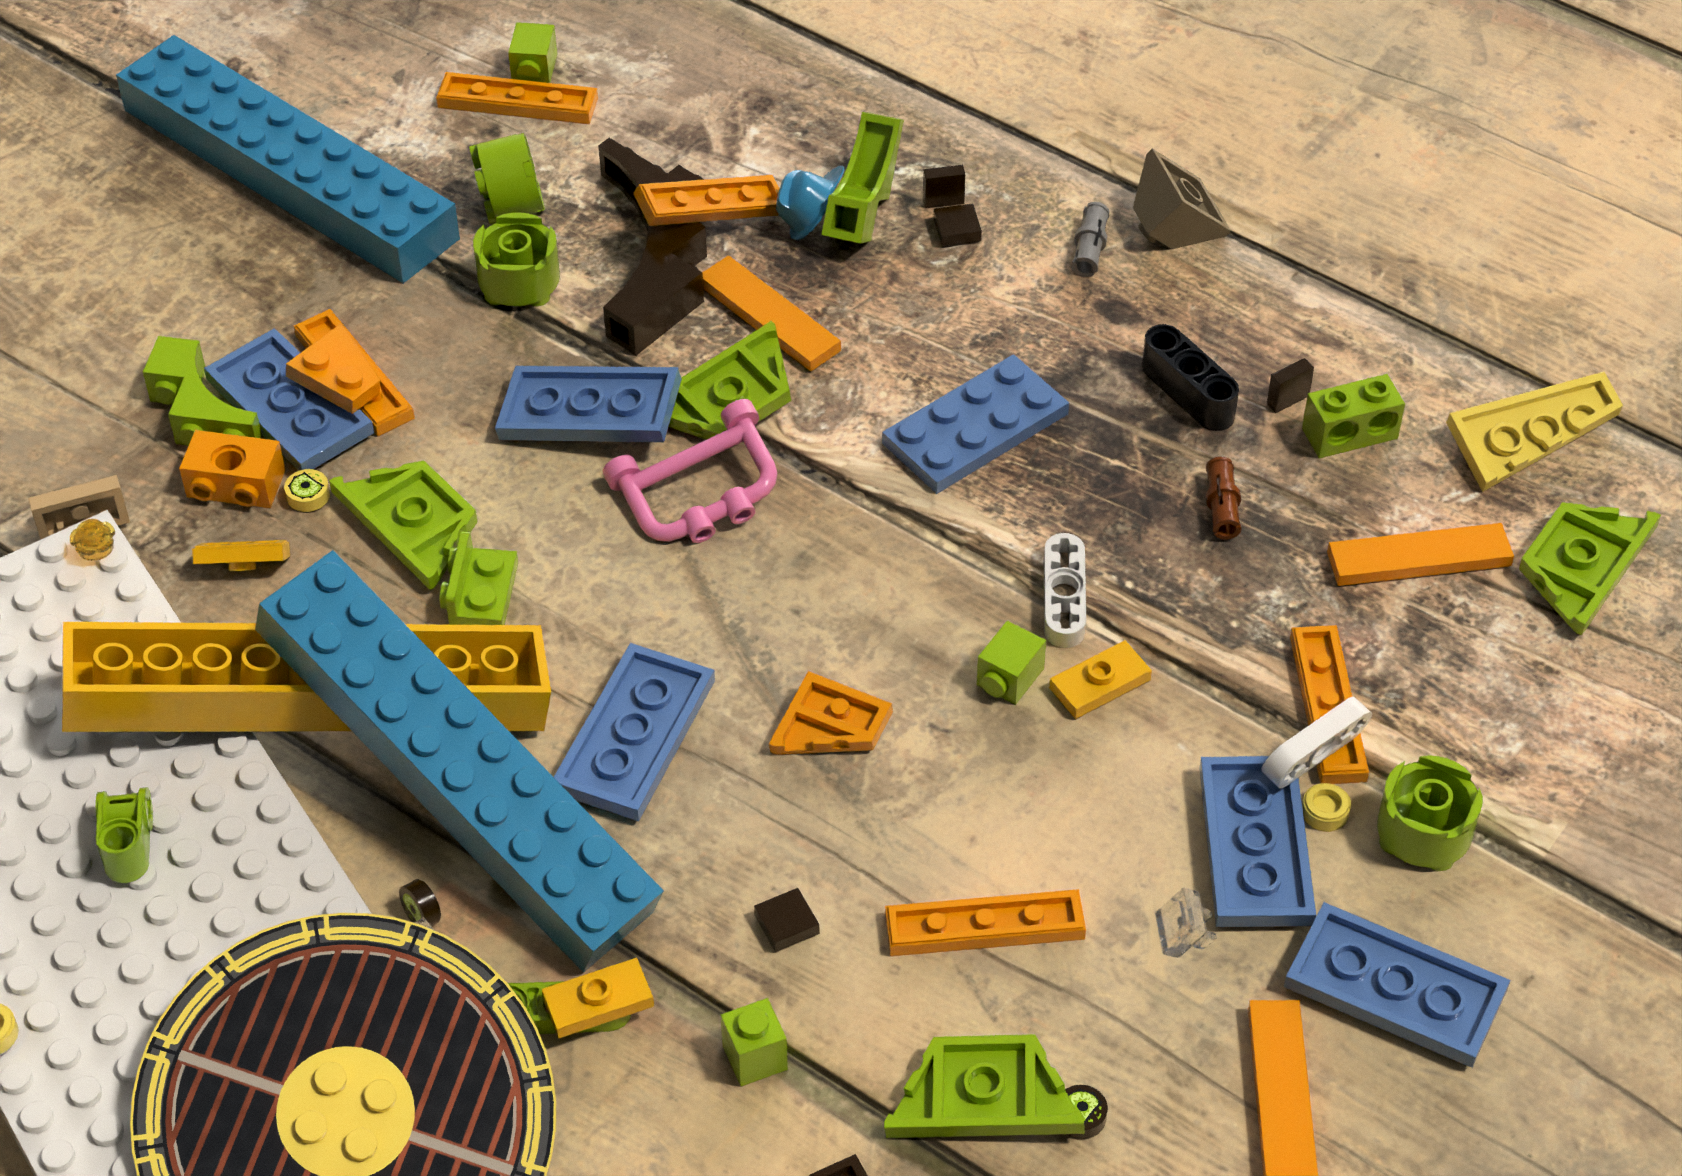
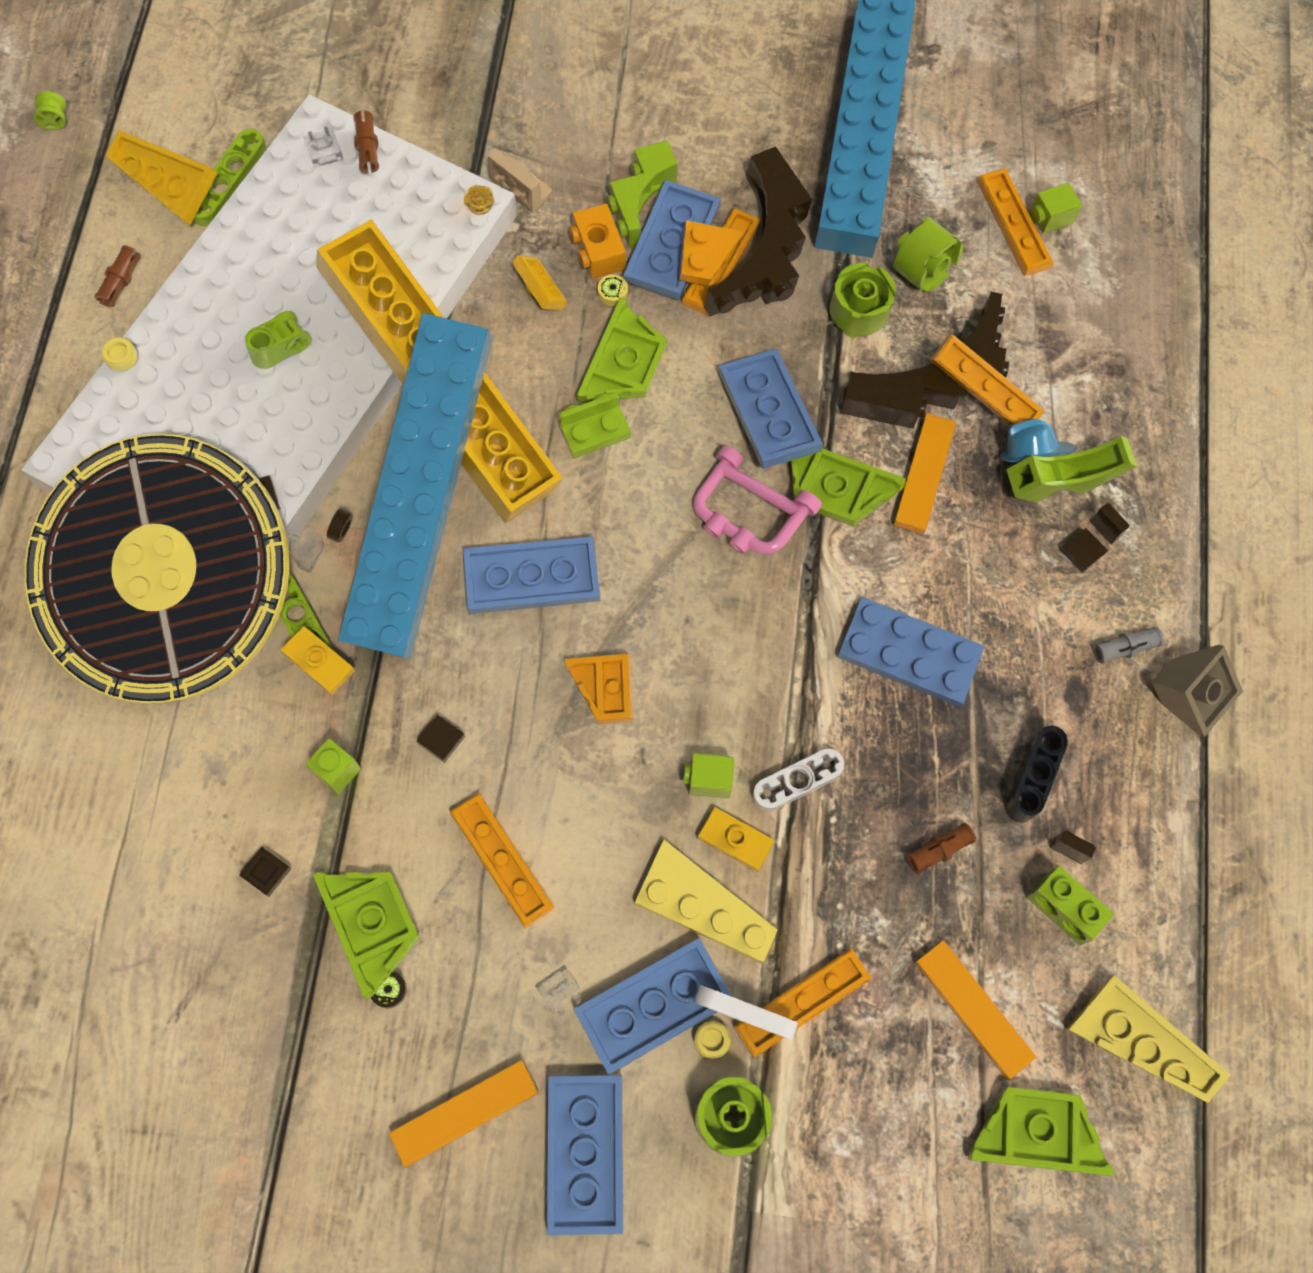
camera: 55 degrees right, 20 degrees up
(373, 298) = (769, 269): none -> dark brown arch
(1157, 748) = (697, 902): none -> light yellow wing

